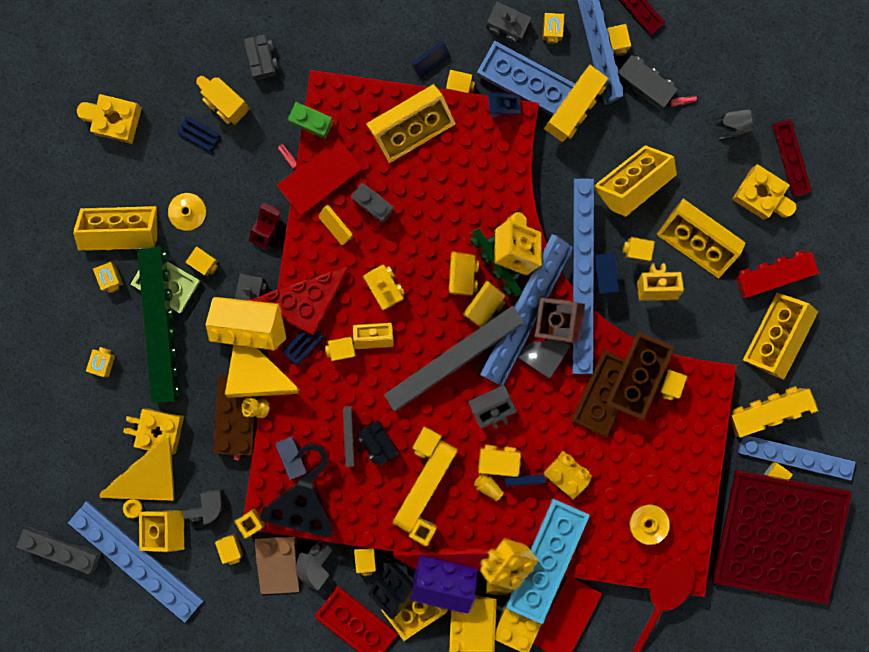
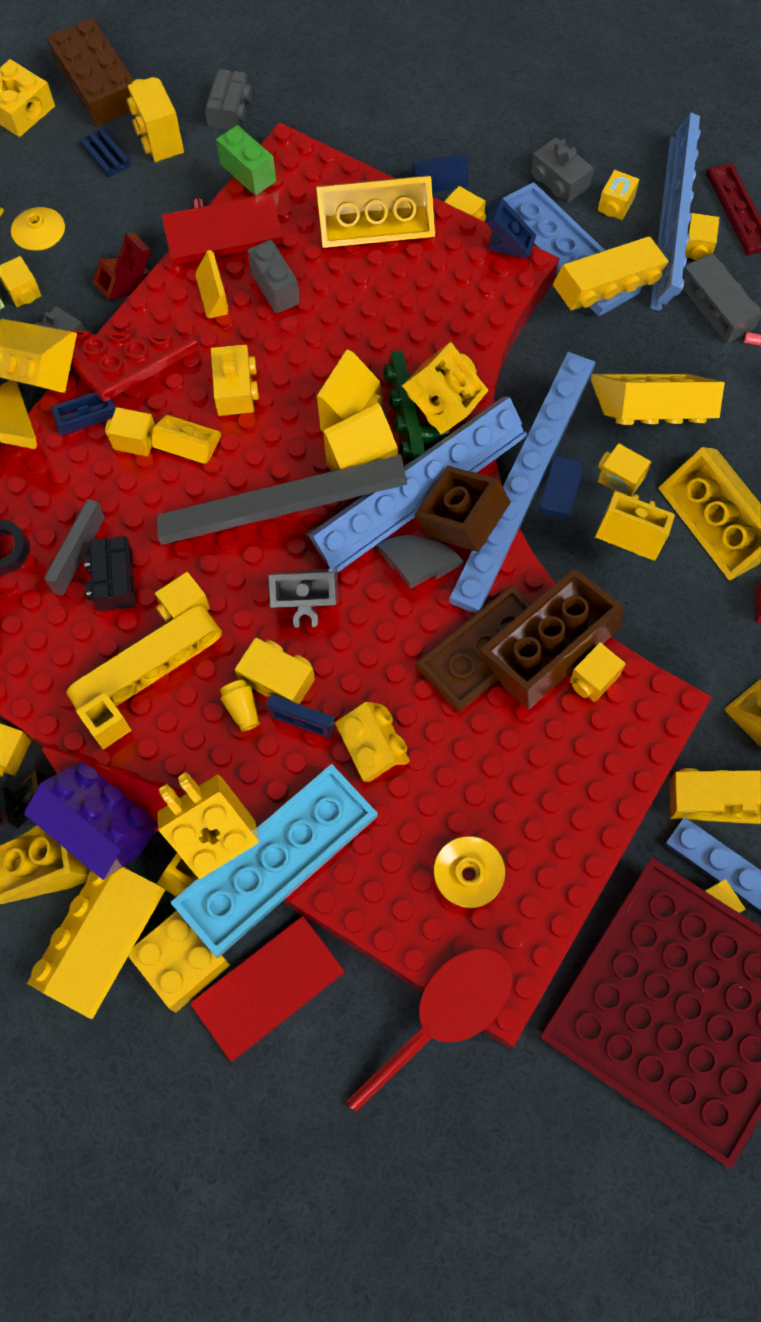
camera: 25 degrees right, 20 degrees down
(157, 73) = (92, 70): none -> reddish brown brick

